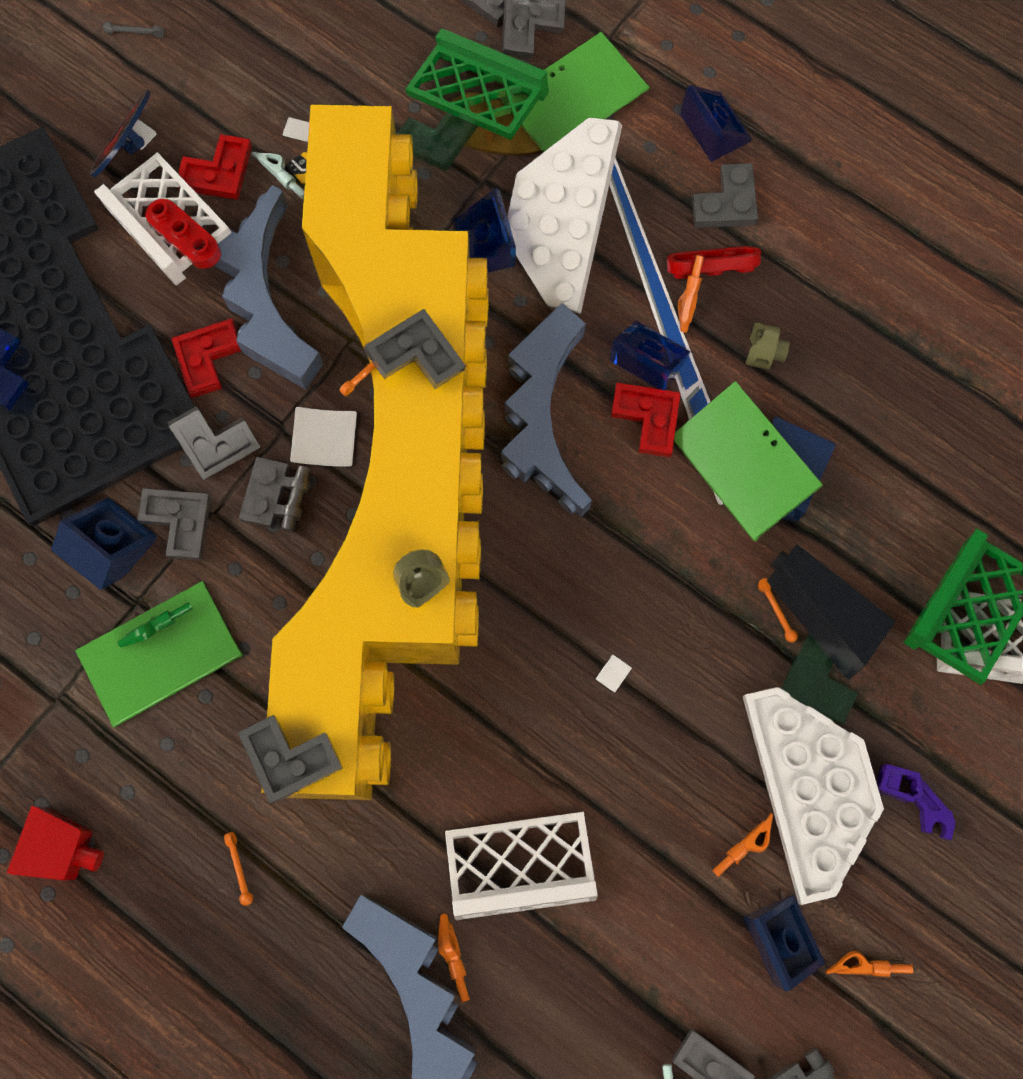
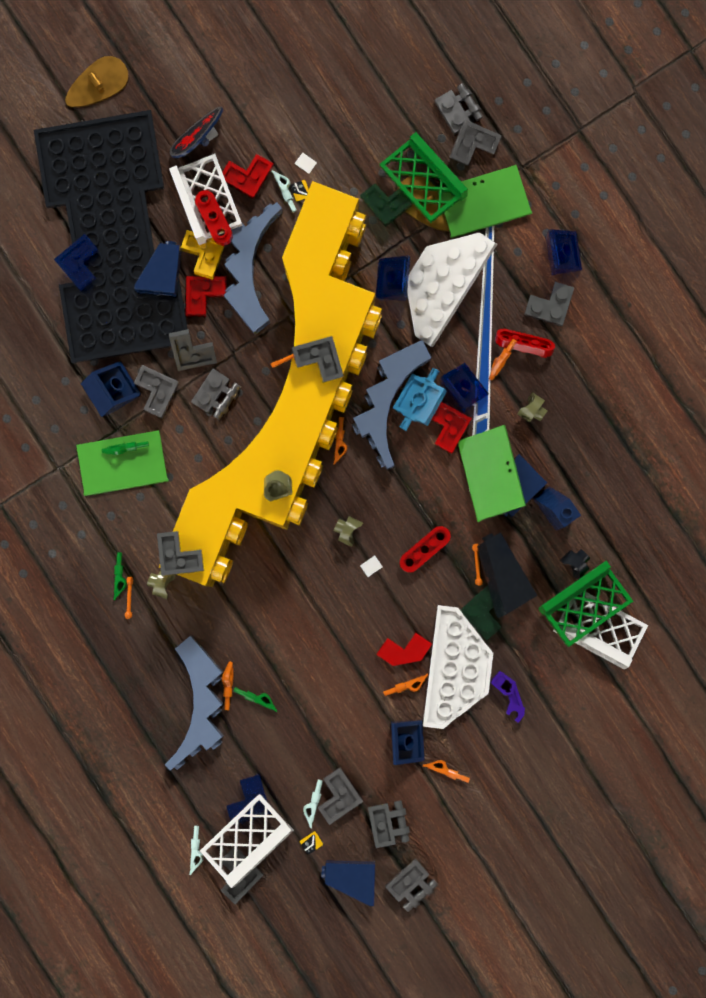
camera: 25 degrees right, 10 degrees up
(53, 847) = (35, 551): red torso -> none
(127, 338) = (162, 271): none -> dark blue slope
(156, 31) = (210, 51): dark grey hinge -> none
(193, 295) = (208, 253): none -> yellow plate
(207, 833) = (118, 571): none -> green hand
(282, 823) = (159, 584): none -> olive piece
(323, 437) = (255, 368): white sticker -> none
(492, 500) = (339, 441): none -> orange hand
(510, 962) = (257, 699): none -> green hand
(527, 896) = (275, 668): white fence -> none
(554, 627) = (346, 530): none -> olive piece
(592, 391) = (419, 399): none -> dark azure plate
(698, 604) = (431, 542): none -> red plate
(734, 786) = (397, 655): none -> red tile
(874, 473) = (556, 508): none -> dark blue slope
(931, 550) = (577, 562): none -> black piece

